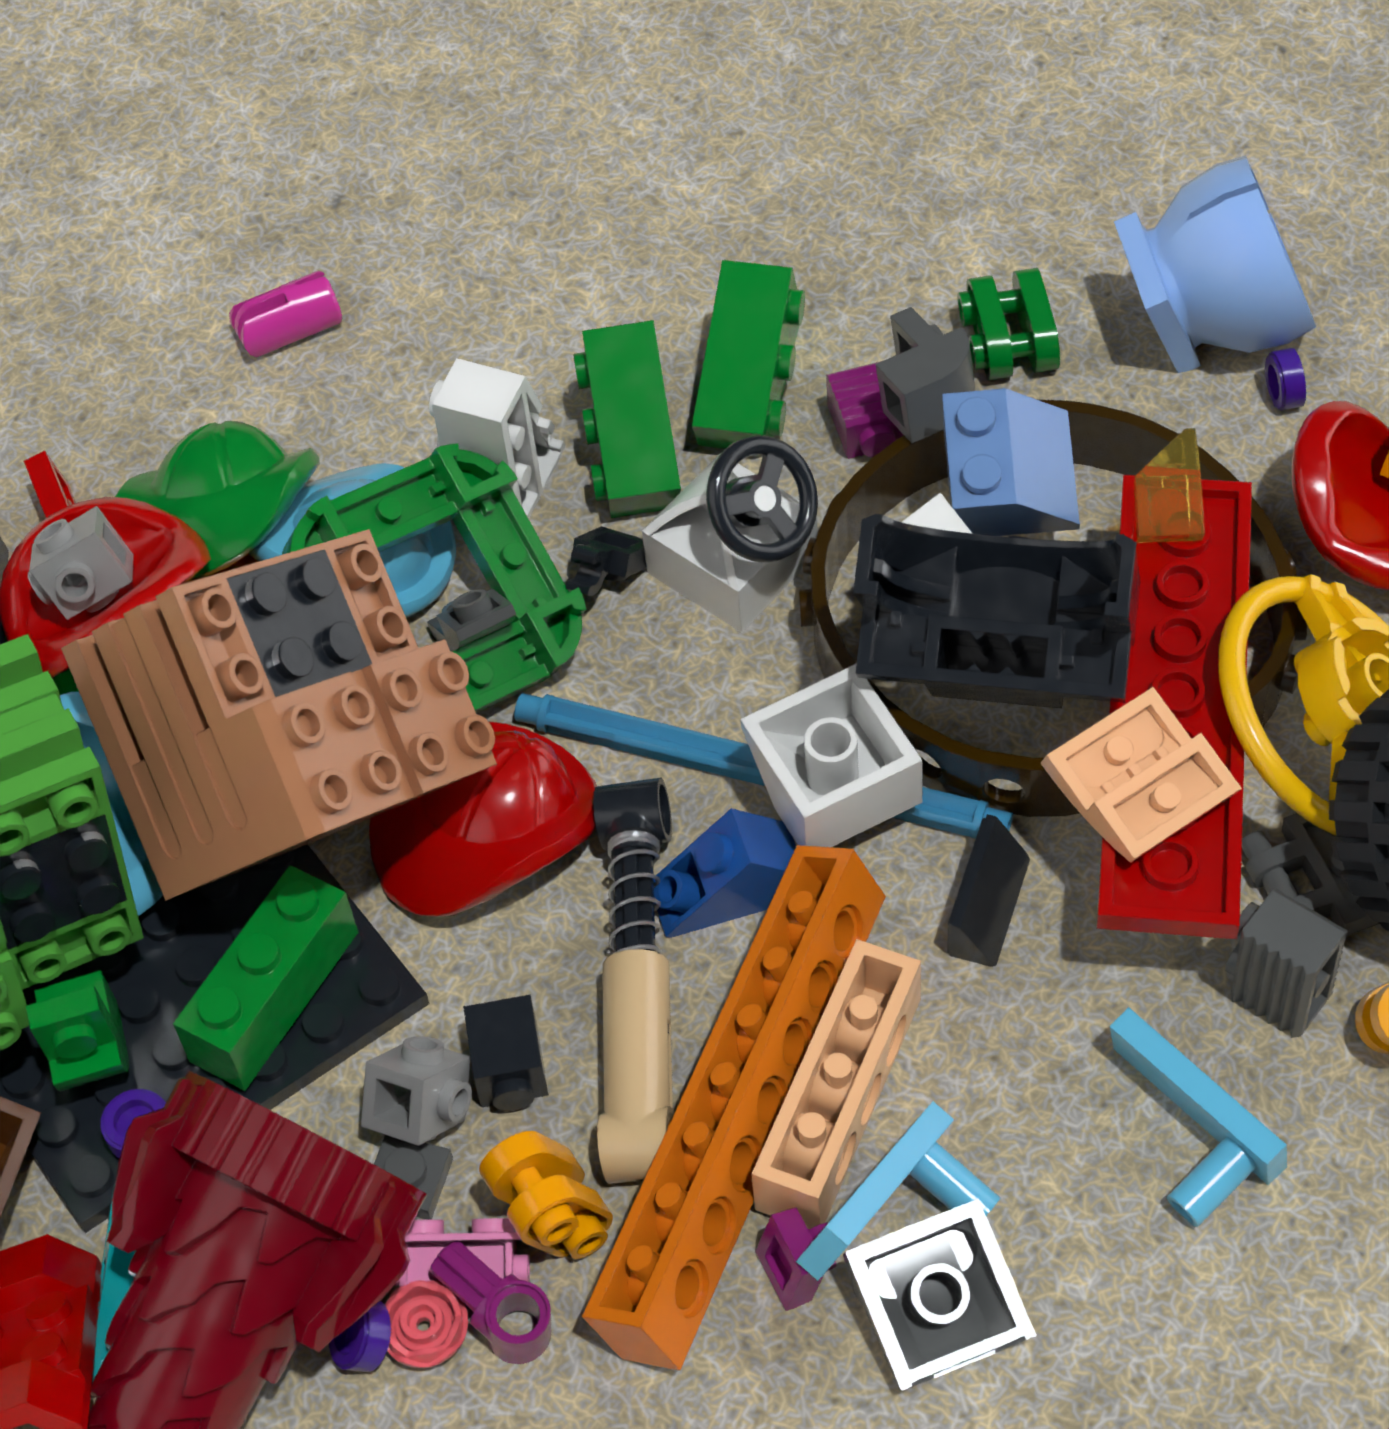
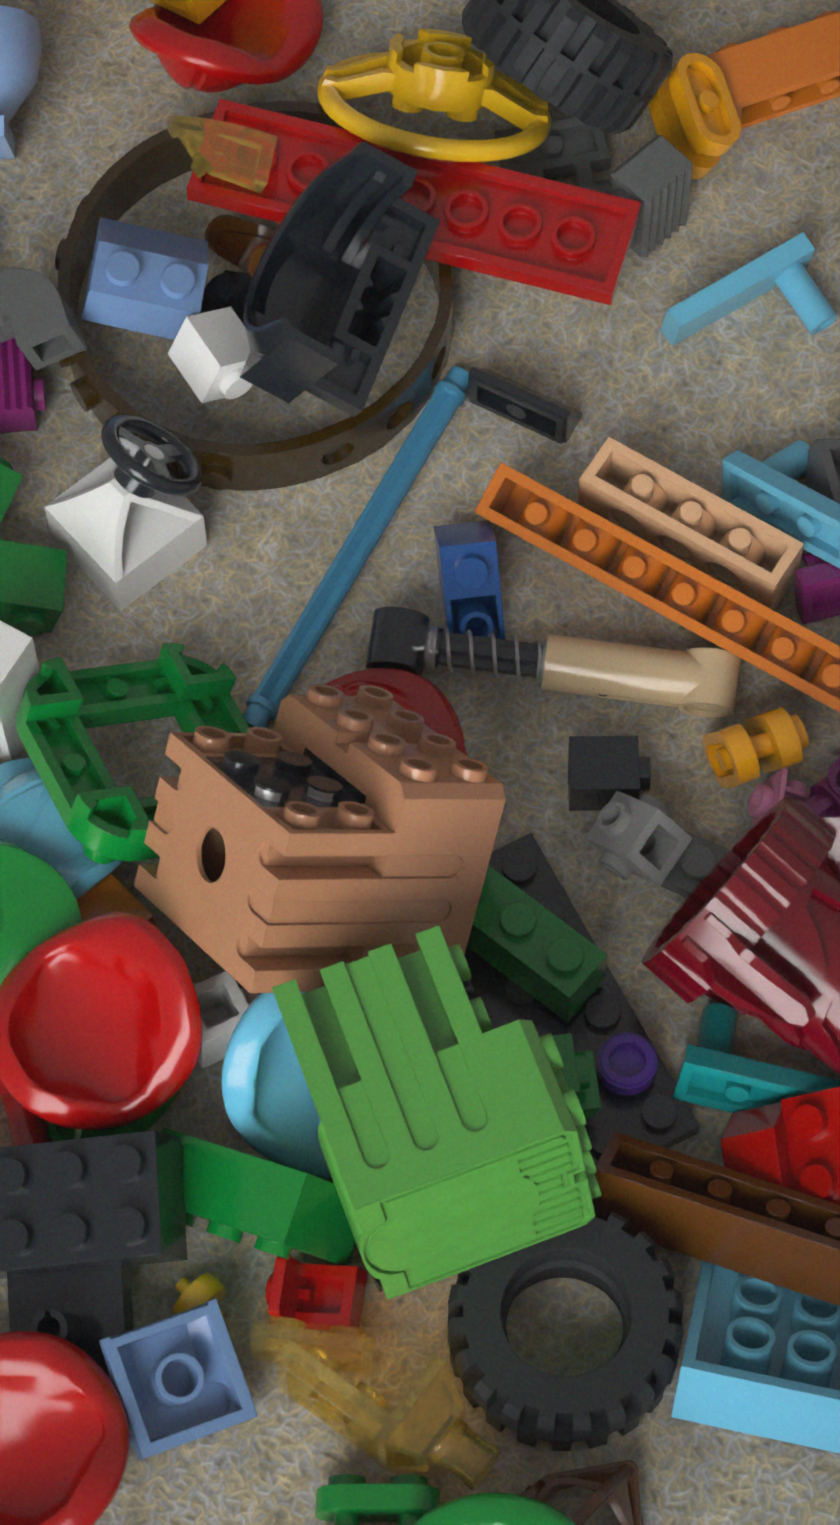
camera: 85 degrees left, 10 degrees up
(80, 564) = (87, 1024): light grey brick -> none
(471, 617) = (146, 749): dark grey slope -> none
(605, 556) = (111, 626): black plate -> none
(834, 760) = (406, 464): white slope -> none
(1140, 775) = (500, 234): light nougat slope -> none
(1285, 379) = (62, 74): dark purple tile -> none

